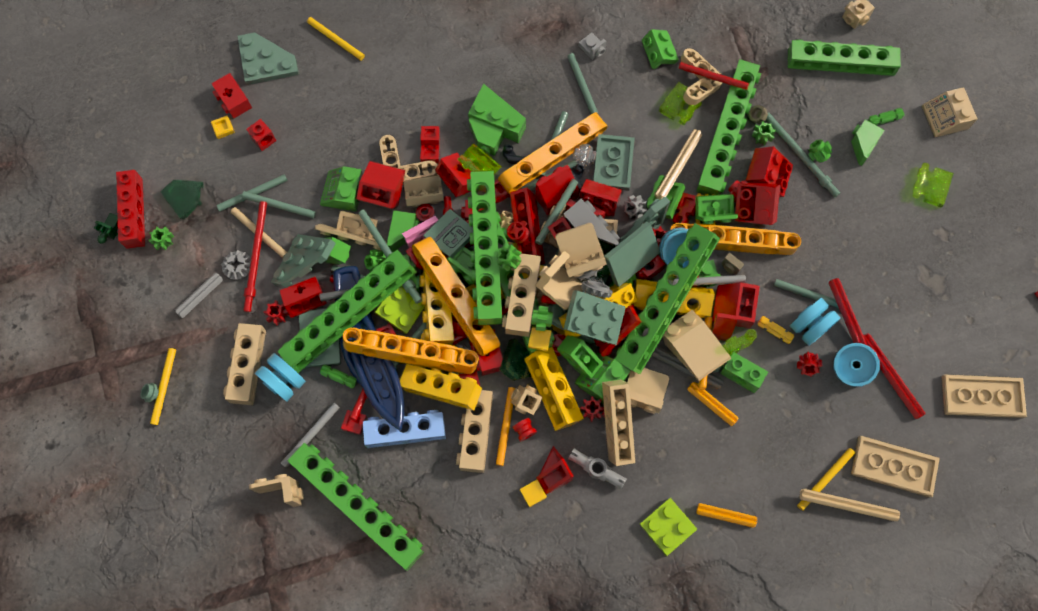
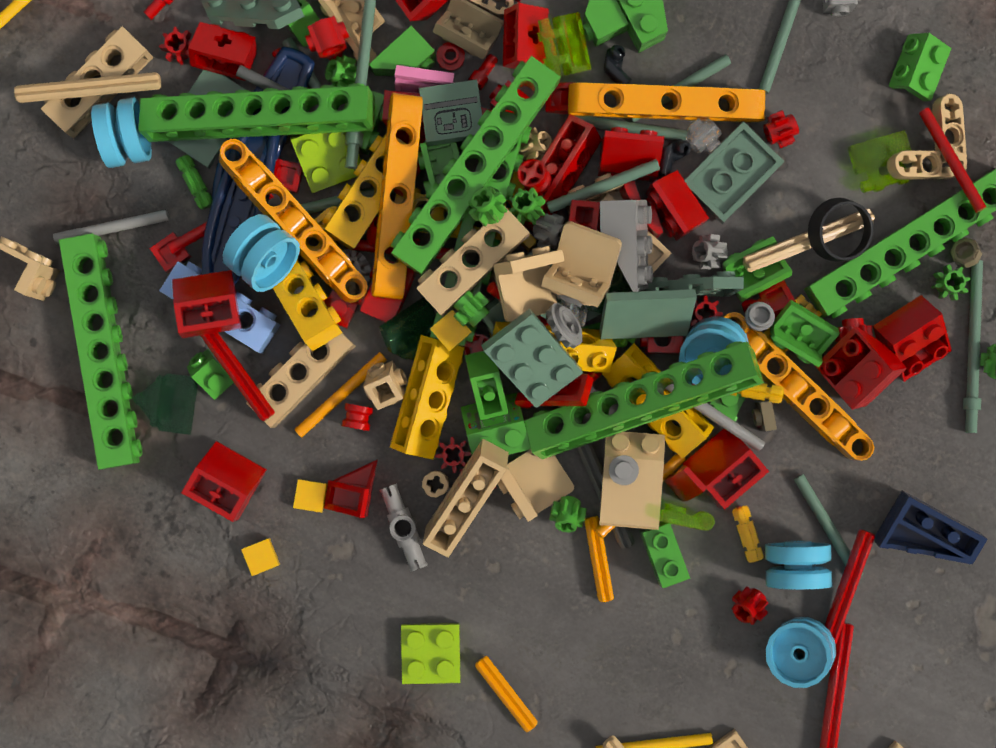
camera: 35 degrees right, 15 degrees up
(243, 367) = (87, 87): none -> tan axle
(355, 247) = (327, 38): none -> red connector
(399, 426) = (205, 304): none -> red slope
(407, 376) = (261, 252): none -> medium azure wheel
(416, 504) = (169, 403): none -> clear green slope
(426, 470) = (209, 373): none -> bright green bracket
(430, 450) = (239, 375): none -> red axle
(480, 521) = (224, 481): none -> red slope
(527, 246) = (527, 206): none -> bright green gear
(533, 549) = (260, 557): none -> yellow tile
(547, 252) = (548, 230): none -> light grey gear
(598, 426) = (428, 488): none -> tan bush
(619, 124) = (781, 129): none -> red gear
(677, 391) = (568, 514): none -> bright green gear
(680, 156) = (816, 223): none -> black tyre
(687, 216) = (759, 316): none -> light grey plate
(687, 340) = (623, 470): none -> light grey plate
(720, 251) = (761, 391): none -> yellow axle
(859, 255) = (928, 531): none -> dark blue wedge

